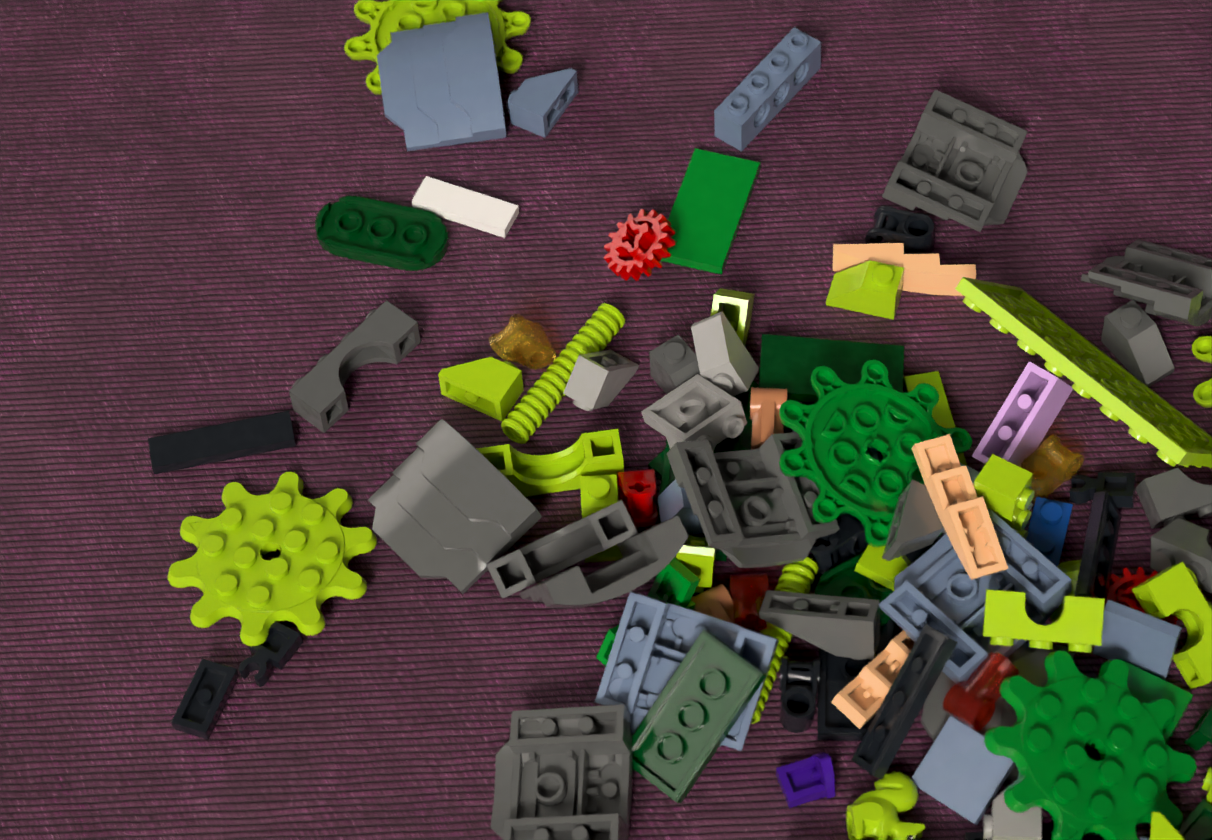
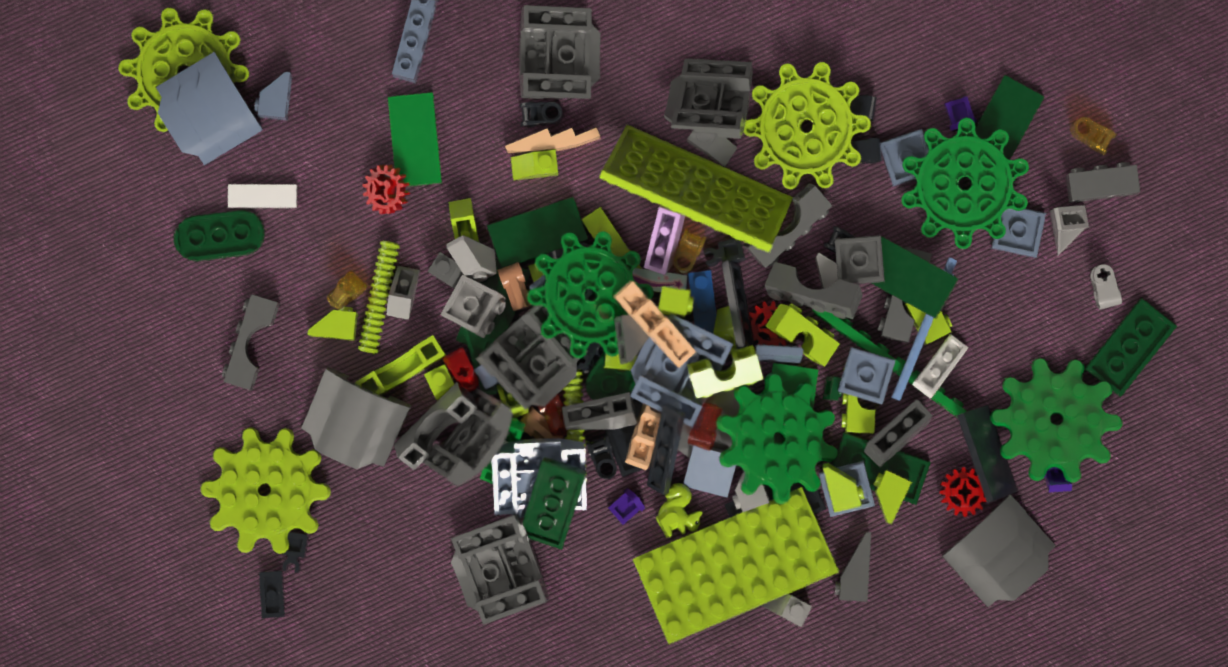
camera: 25 degrees left, 30 degrees up
(221, 442) = (195, 424): black tile -> none

